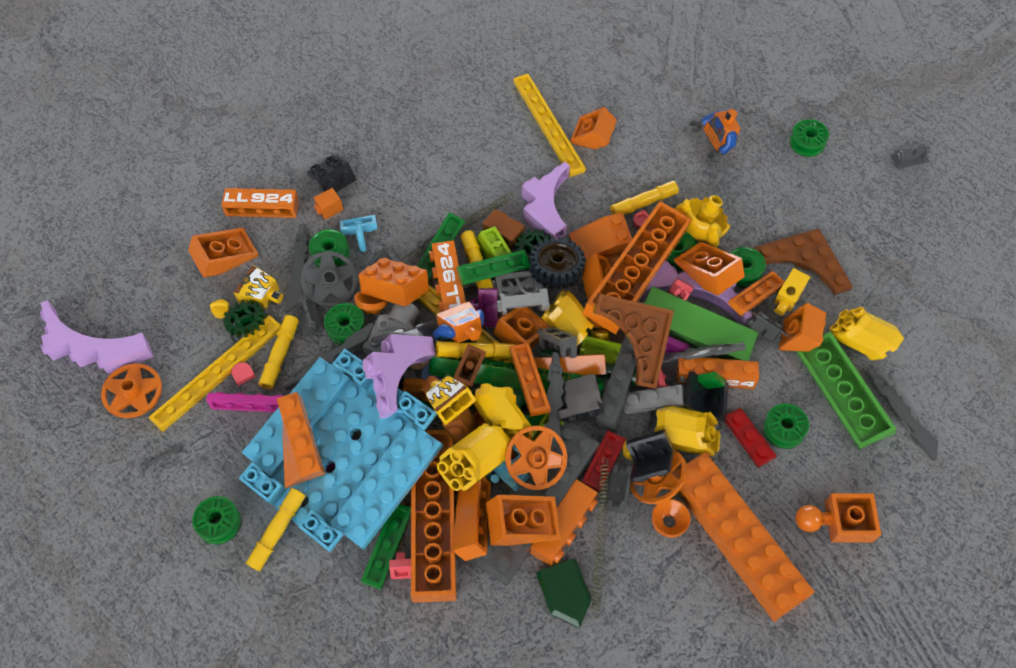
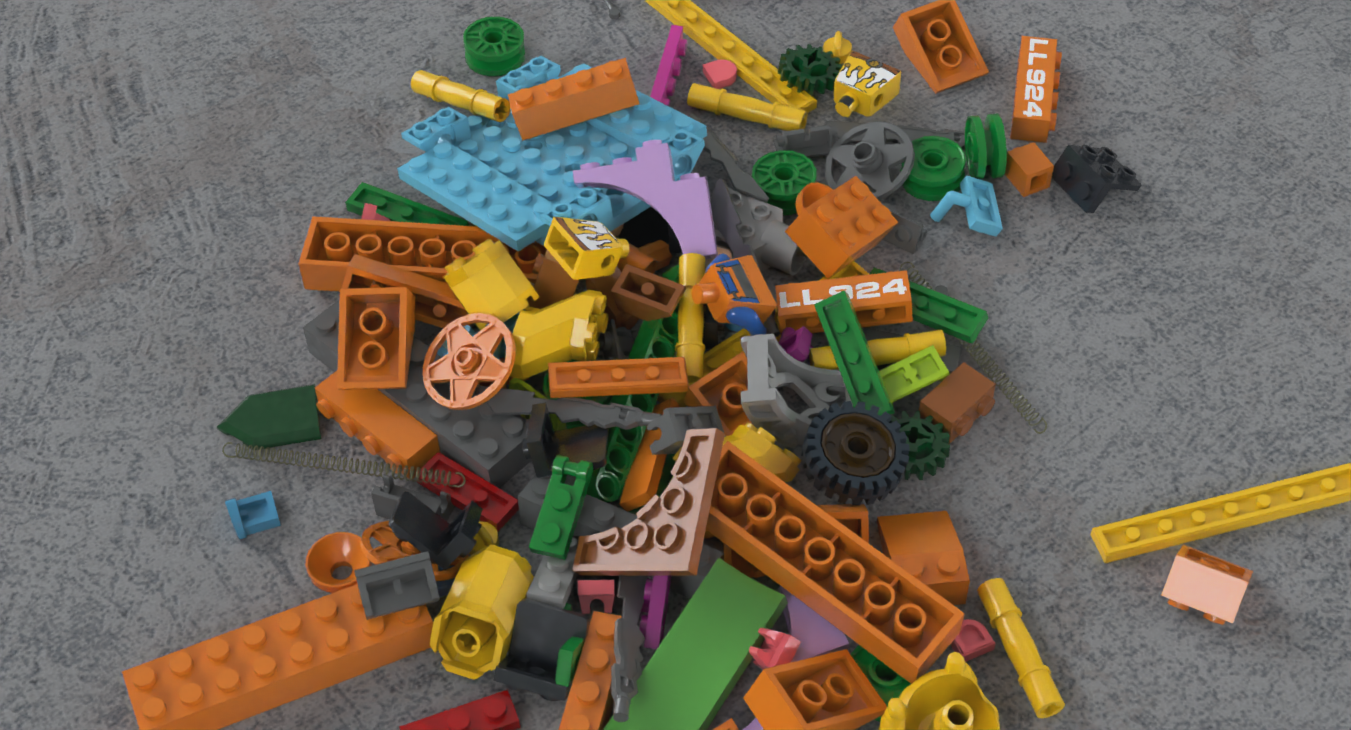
camera: 100 degrees right, 10 degrees down
(318, 217) = (985, 146): none -> green wheel
(540, 195) = (1033, 472): lavender arch -> none
(625, 393) = (561, 508): none -> green plate
(640, 584) = (253, 514): none -> dark azure tile
(696, 466) = (397, 585): none -> dark grey hinge

